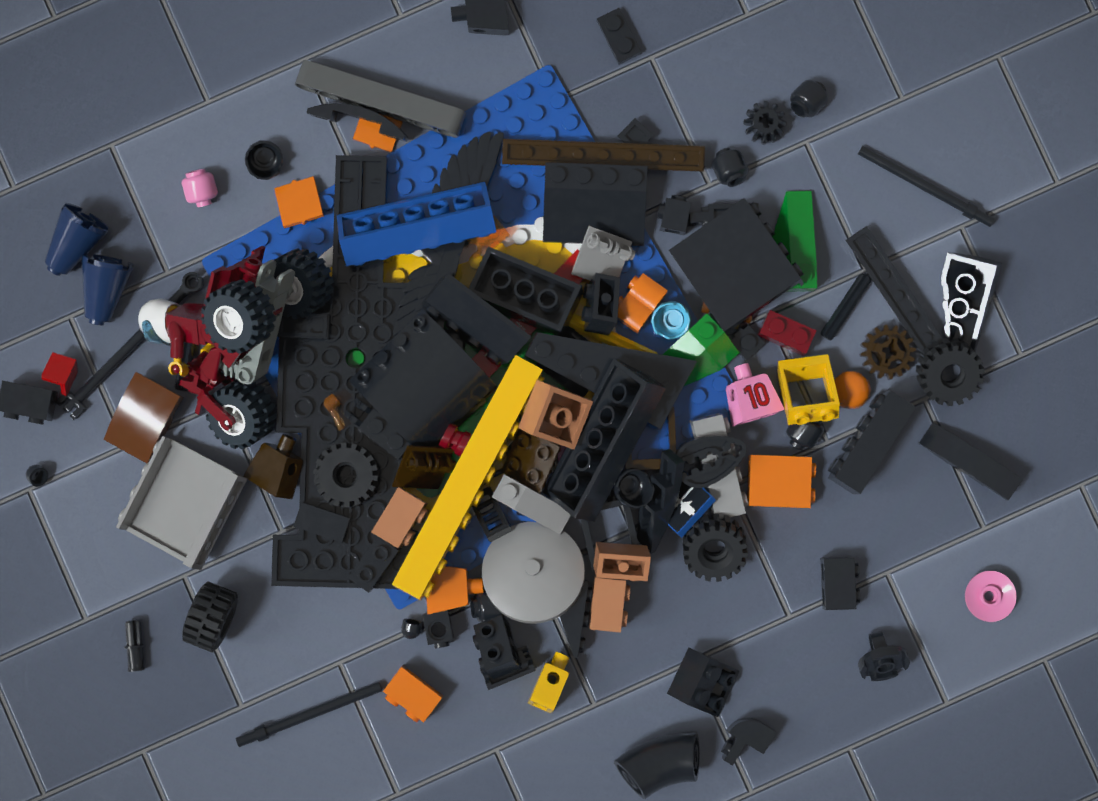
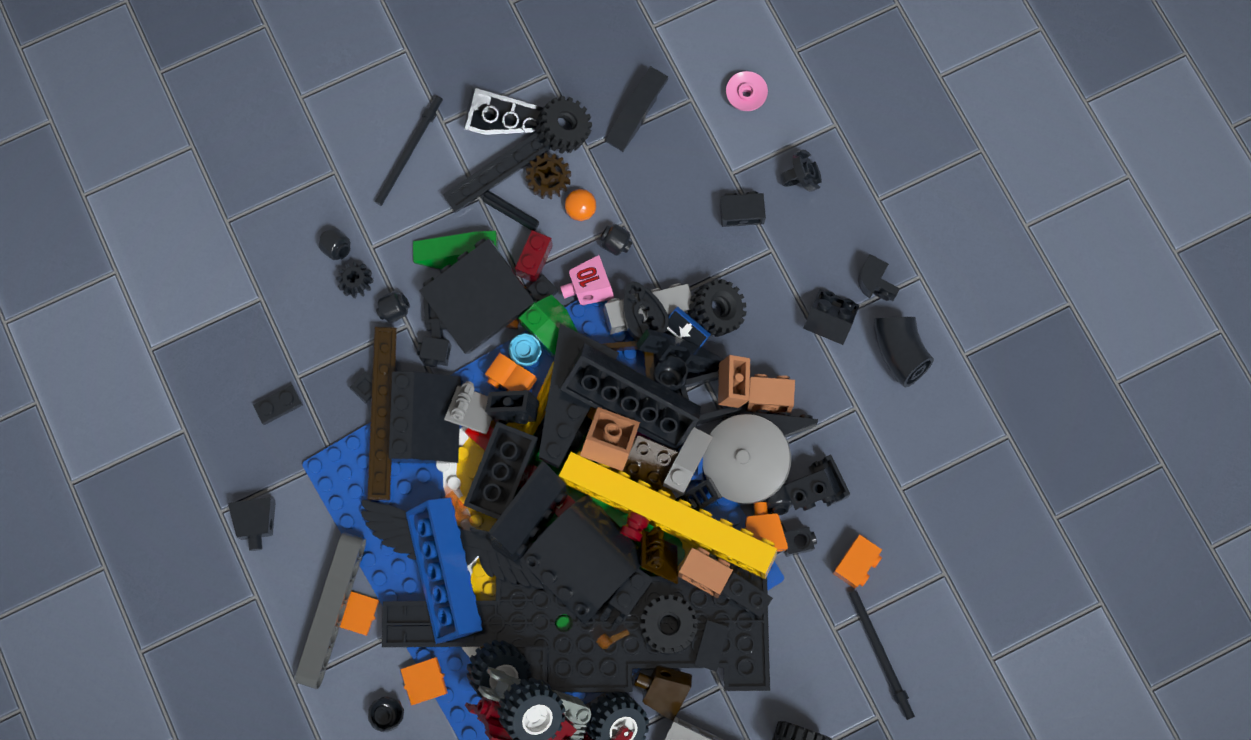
camera: 90 degrees left, 10 degrees down
(330, 112) = (341, 656): black slope -> none
(411, 628) = (800, 565): black hinge -> none
(544, 693) = (850, 445): yellow torso -> none
(780, 481) = (659, 258): orange brick -> none
(806, 369) = (564, 240): yellow window -> none
(871, 443) = (624, 185): black brick -> none

